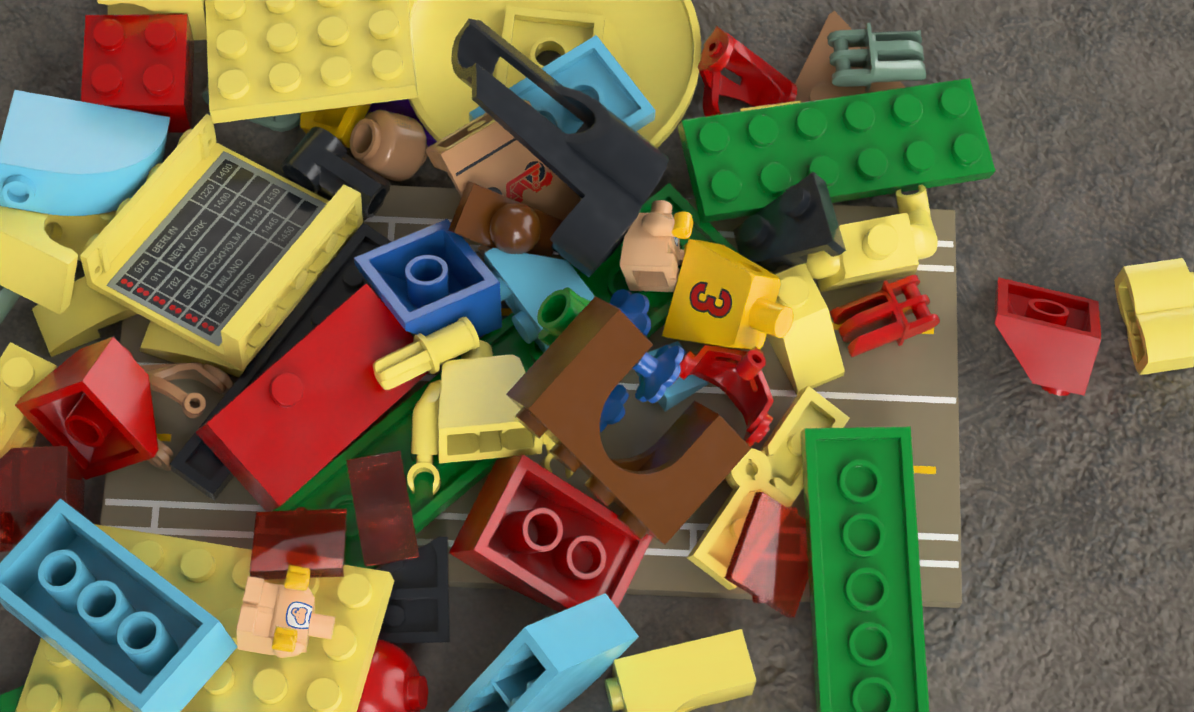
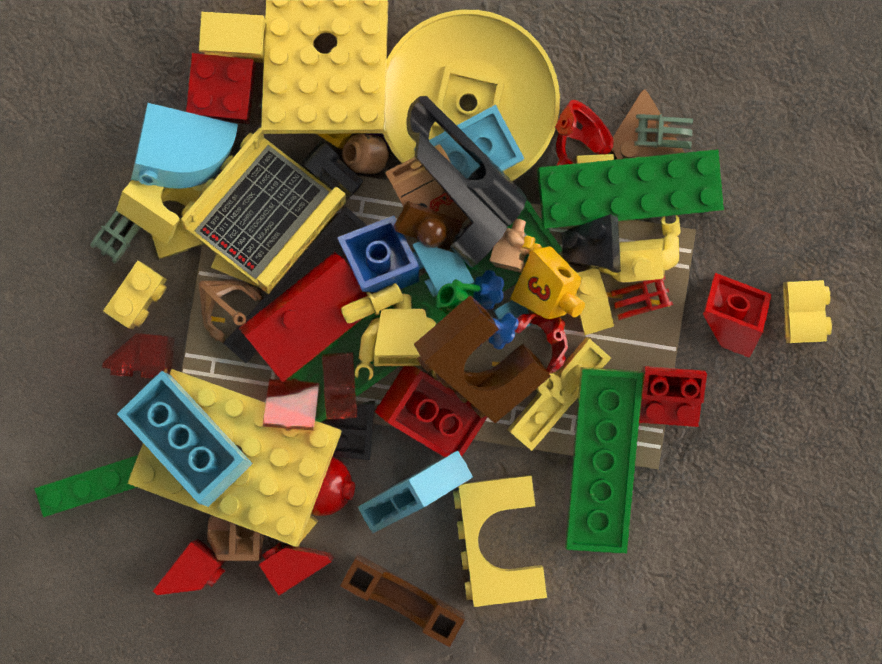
camera: 10 degrees right, 20 degrees up
(97, 408) = (184, 308): red slope -> none
(281, 616) = (278, 454): light nougat piece -> none
(771, 555) = (554, 435): clear red piece -> none
(966, 464) = (672, 396): none -> red brick

